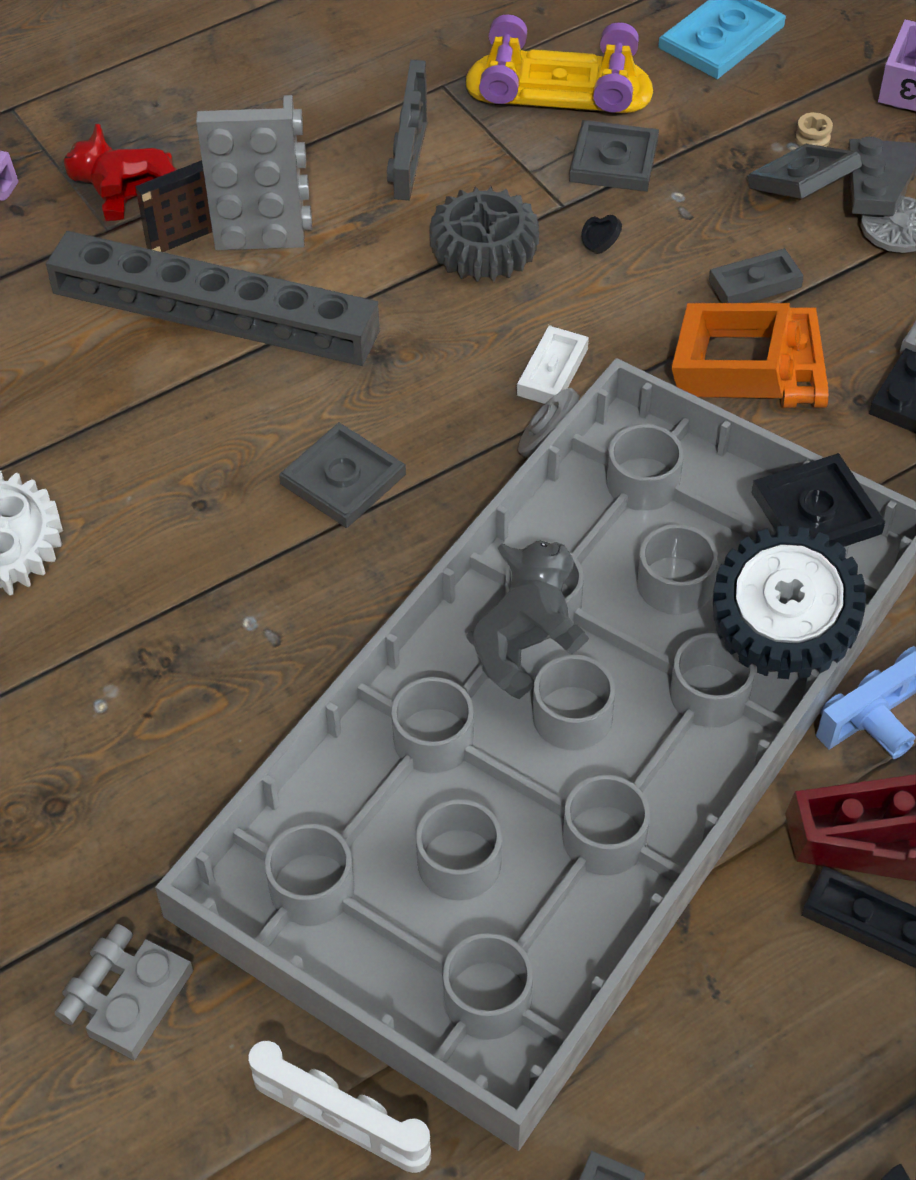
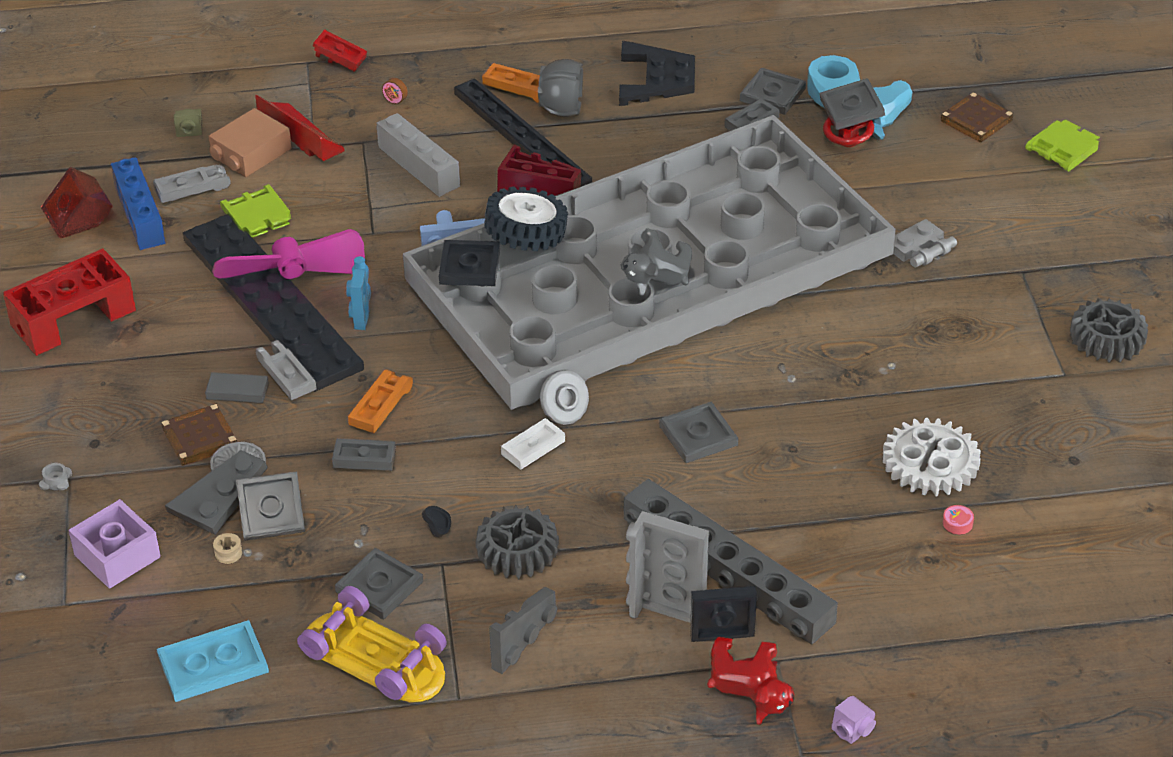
camera: 155 degrees left, 10 degrees down
(355, 1119) = (848, 172): white plate -> none
(735, 377) = (409, 415): orange window -> none

